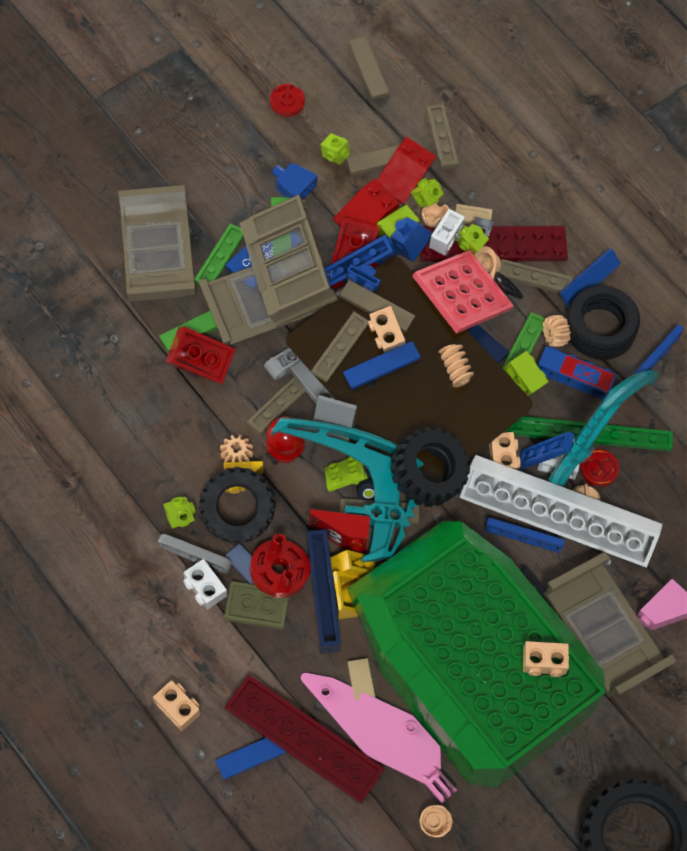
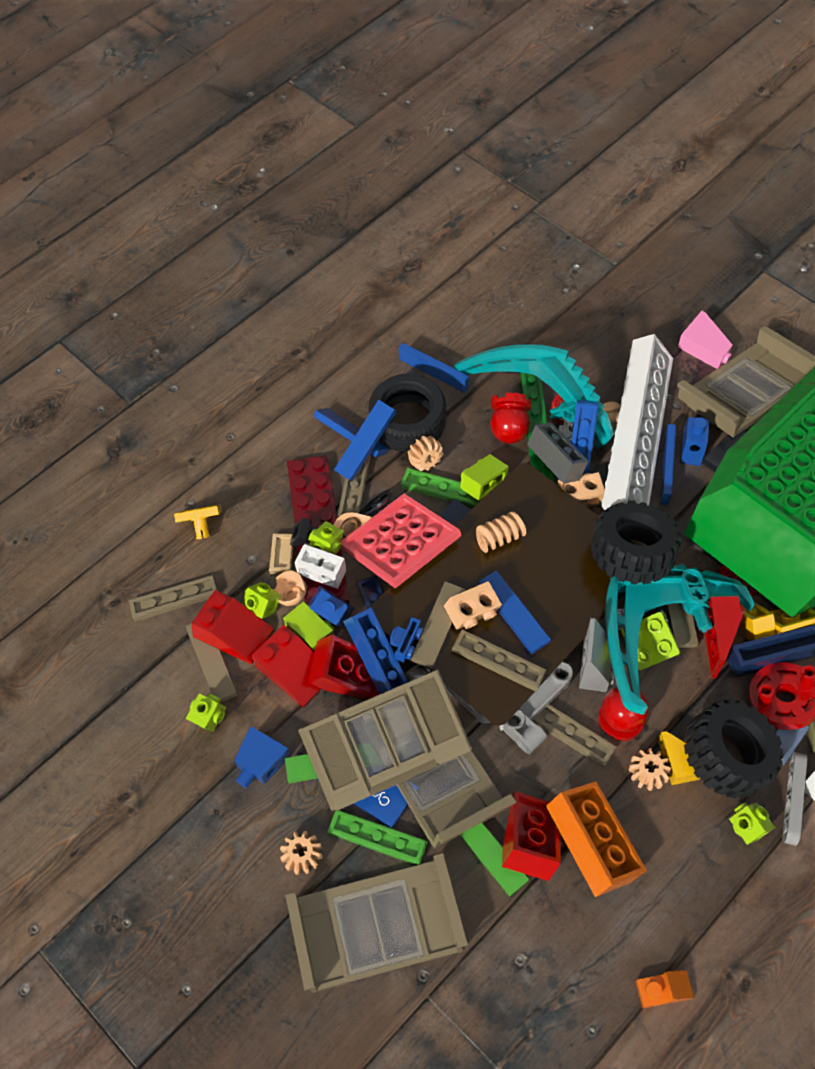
camera: 90 degrees left, 5 degrees down
(73, 426) = (664, 989): none -> orange slope
(187, 394) = (595, 838): none -> orange brick
(216, 203) = (310, 850): none -> light nougat gear
(287, 100) = (127, 788): red tile -> none
(368, 68) = (74, 693): dark tan tile -> none
(513, 153) = (199, 517): none -> yellow tile
(537, 430) = (557, 453): none -> dark grey brick
(546, 561) = (696, 434): none -> blue torso
(570, 279) = (365, 440): none -> blue tile
(576, 373) = (469, 434): blue brick -> none
(581, 402) = (510, 420): none -> red tile

